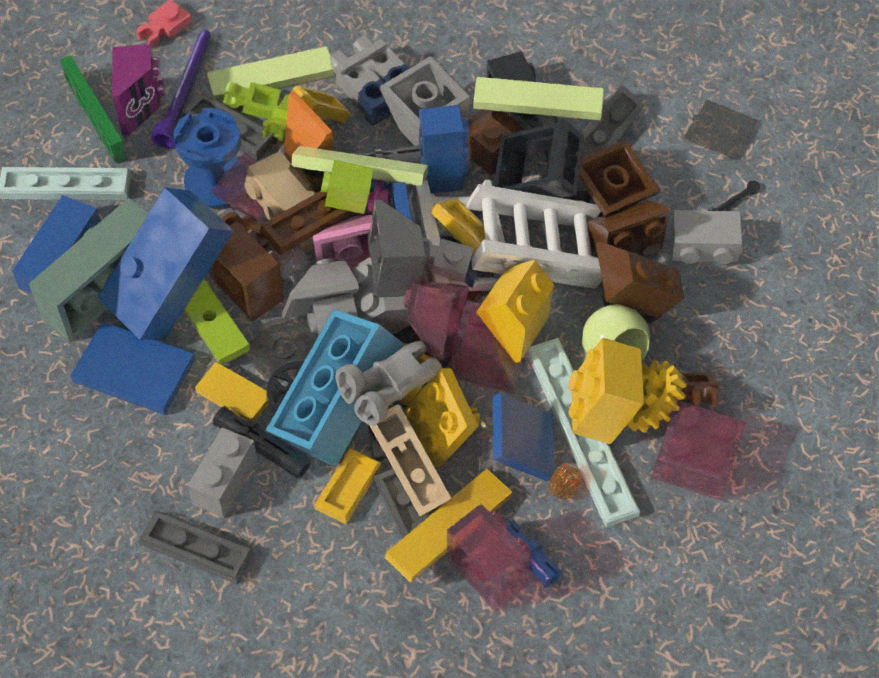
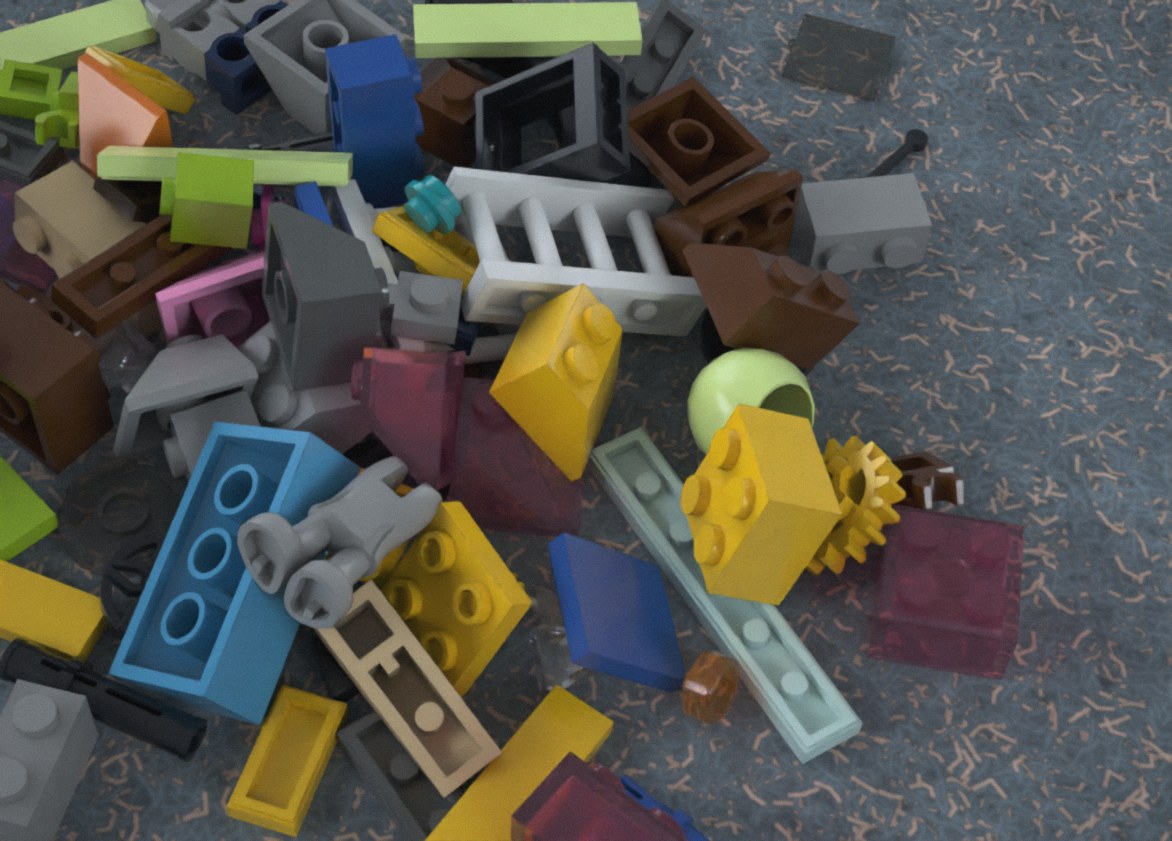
camera: 15 degrees left, 5 degrees down
(463, 203) = (431, 205): none -> teal plate

